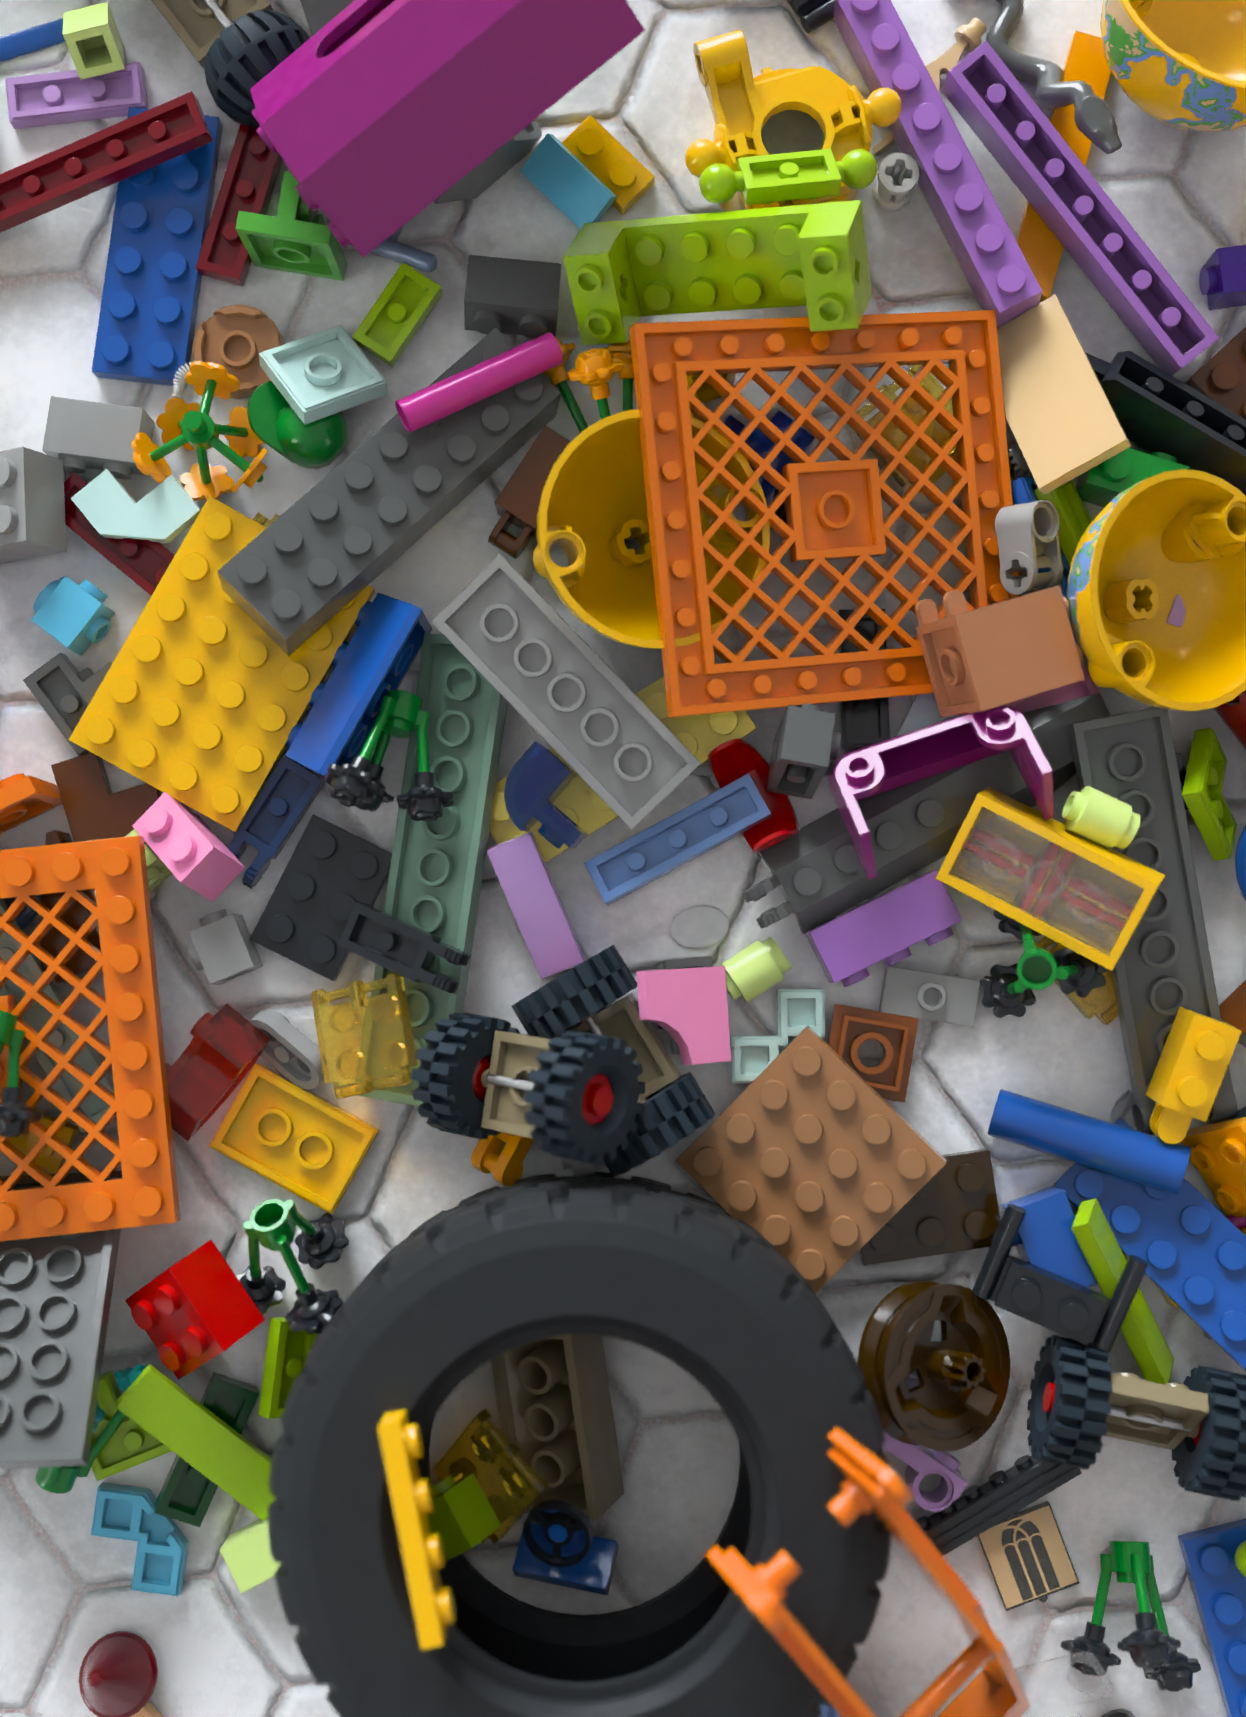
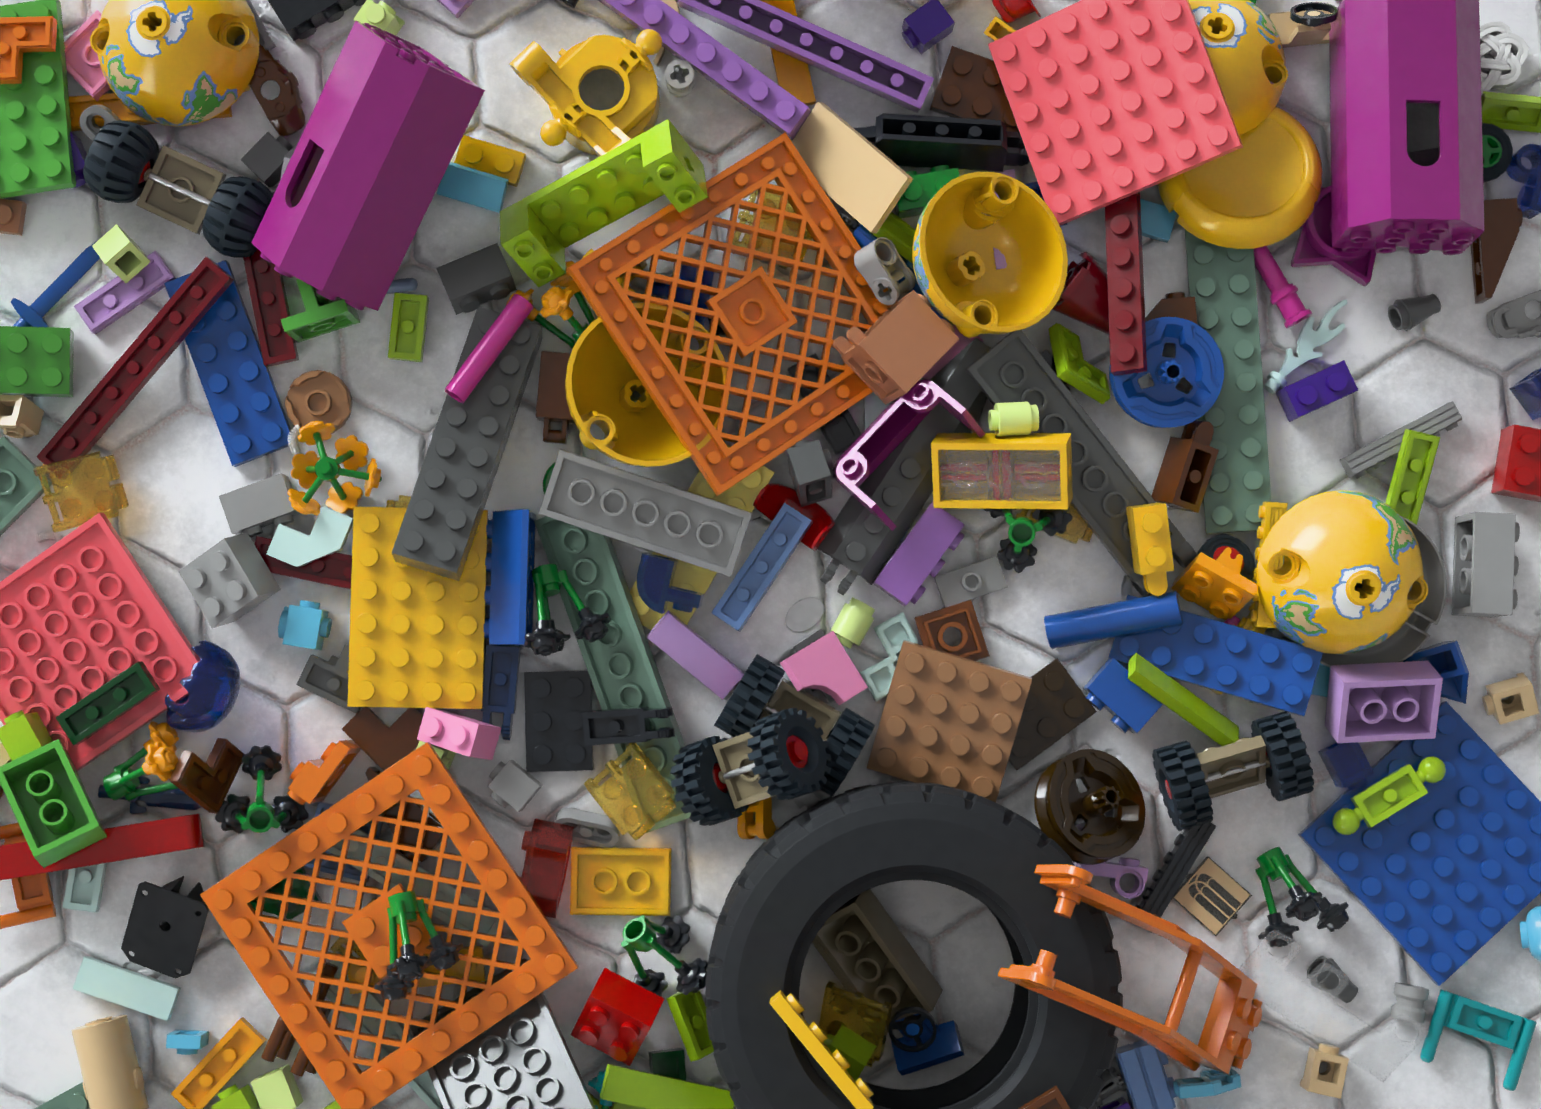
camera: 30 degrees left, 0 degrees up
(281, 429) = (382, 430): green cap -> none
(323, 374) = (383, 391): light aqua tile -> none
(788, 176) = (613, 120): lime plate -> none
(1051, 1298) = (1138, 728): black plate -> none

